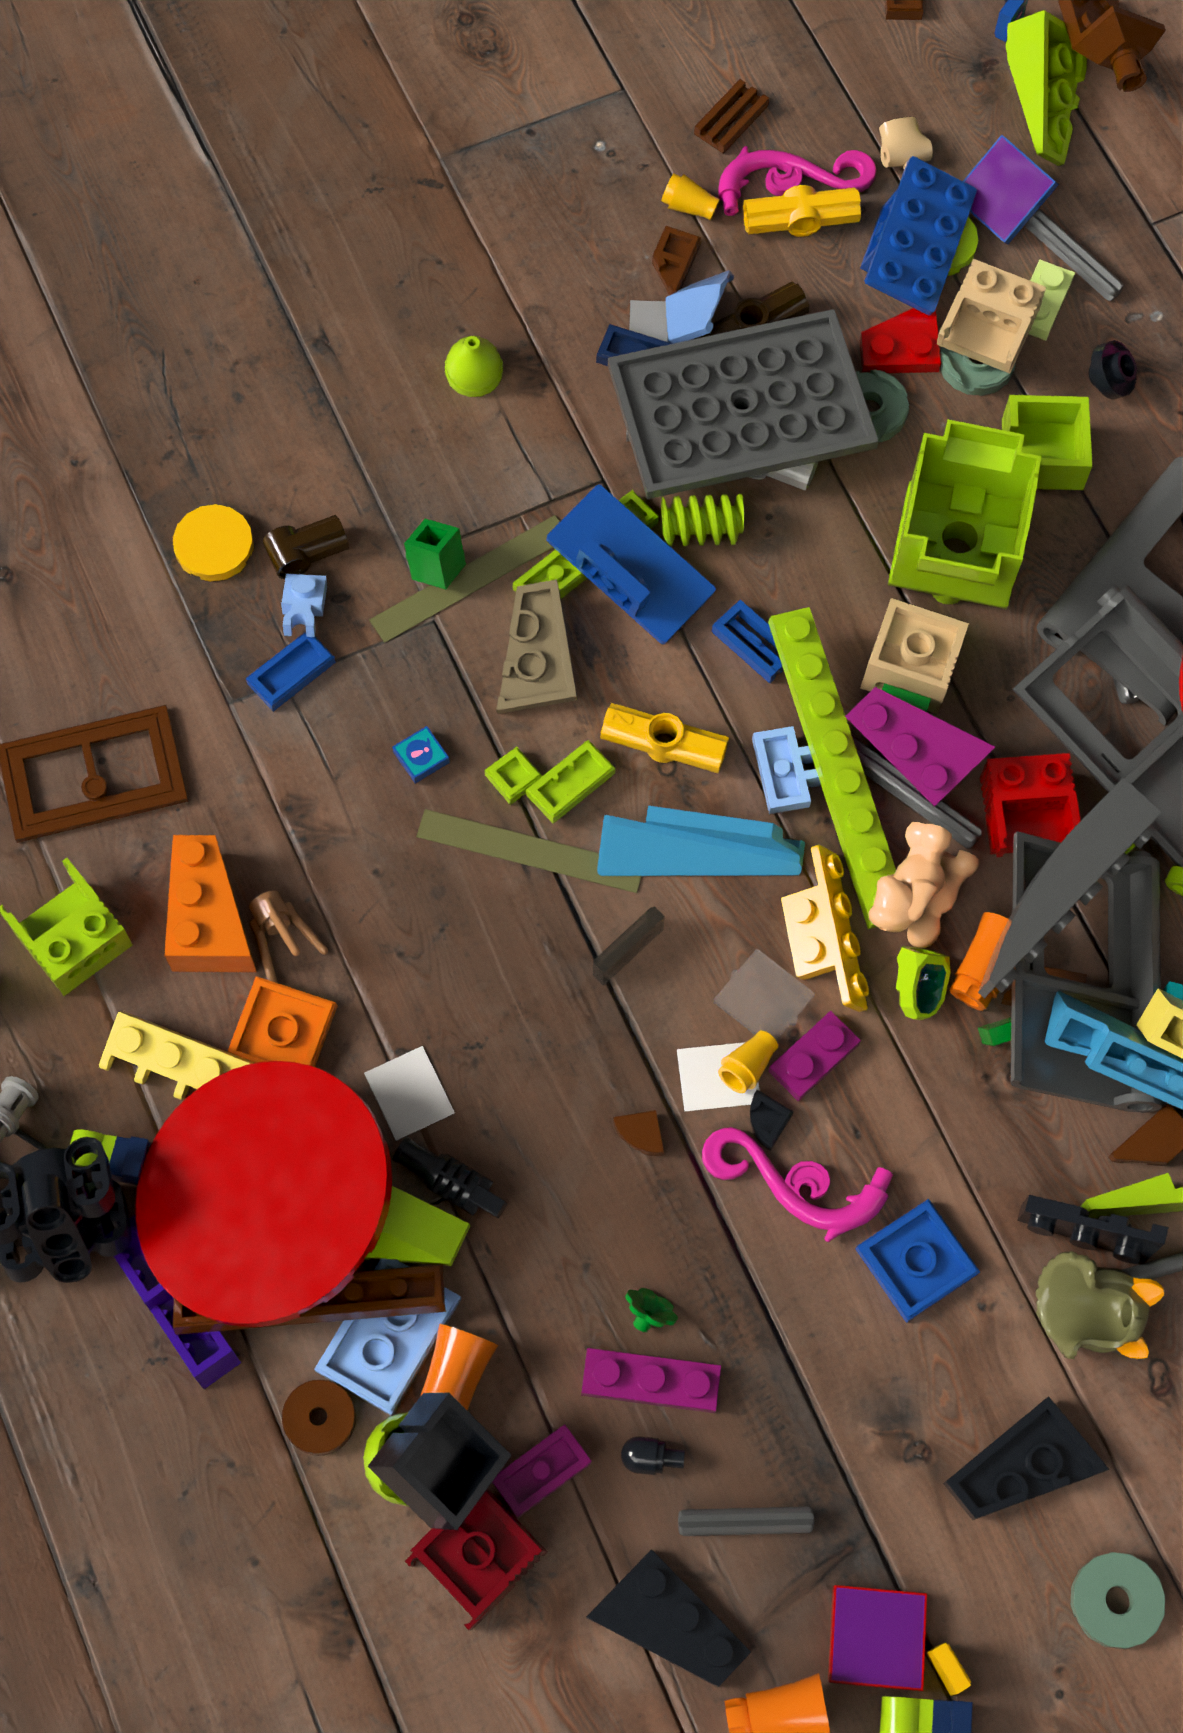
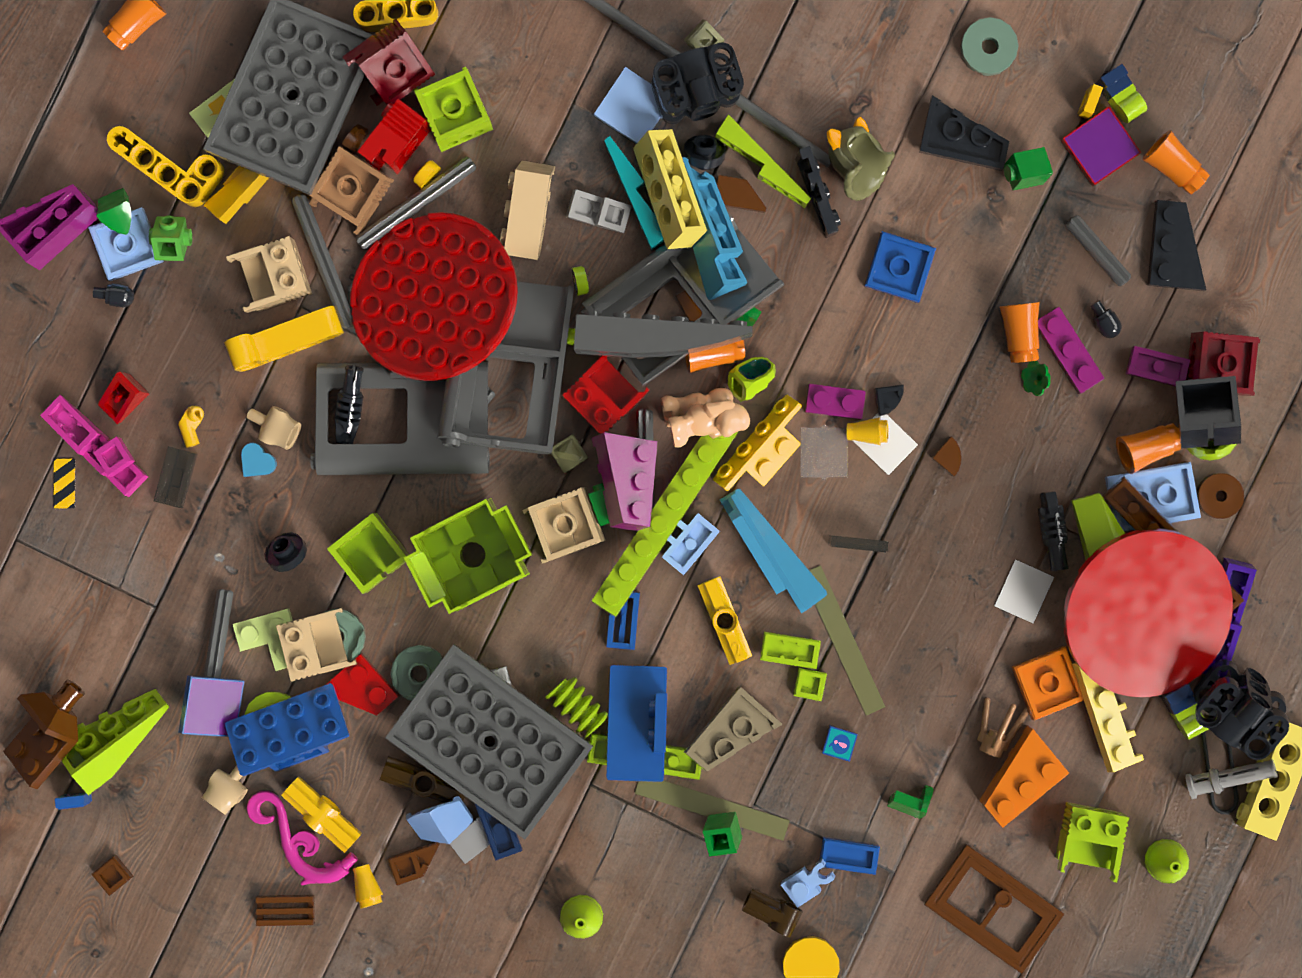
camera: 120 degrees left, 20 degrees up
(284, 770) = (910, 804): none -> green tile
(724, 1336) = (1021, 331): none -> orange plant
(836, 1221) = (900, 314): dark pink plant -> none
(923, 1510) = (1028, 168): none -> green brick
(992, 723) = (569, 453): none -> olive tile

